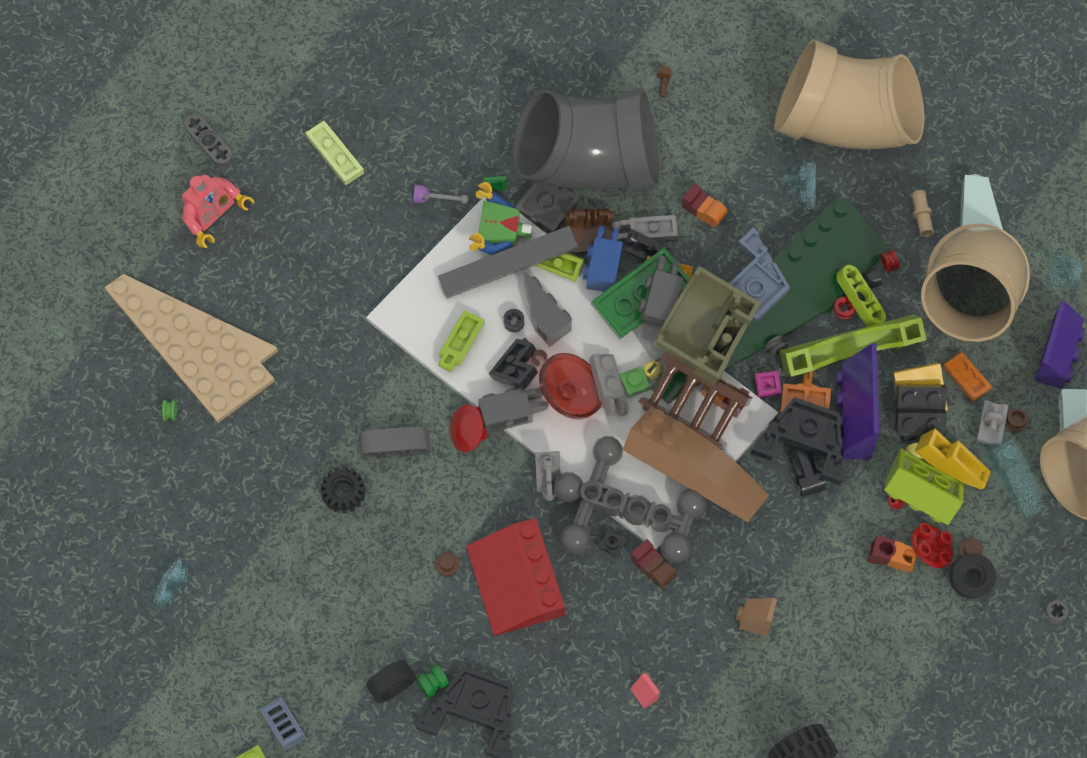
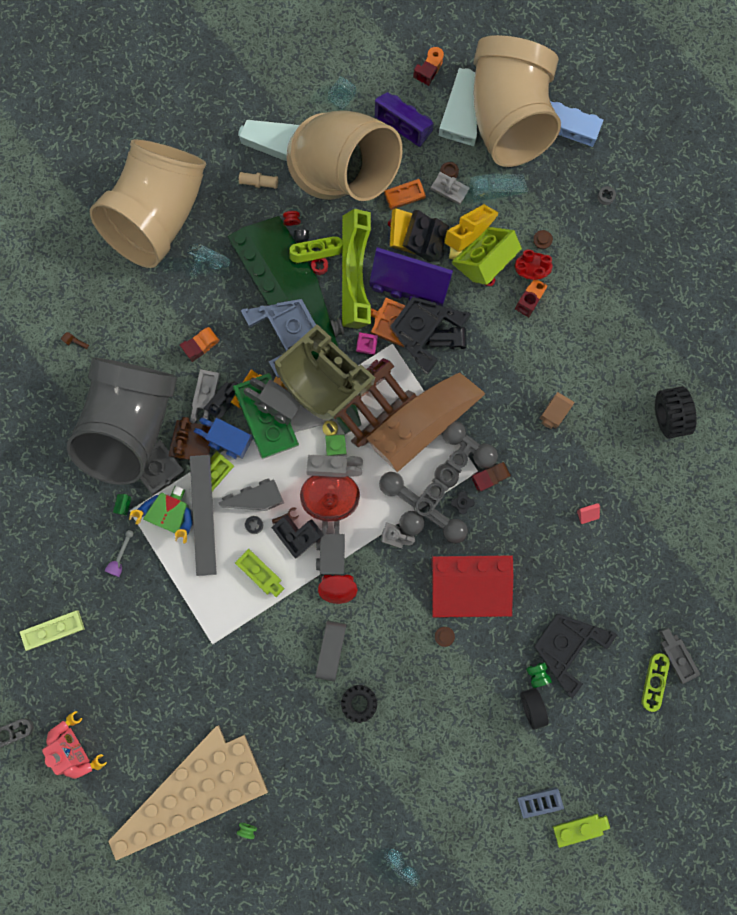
camera: 75 degrees left, 15 degrees up
(986, 572) = (575, 240): black tyre -> none

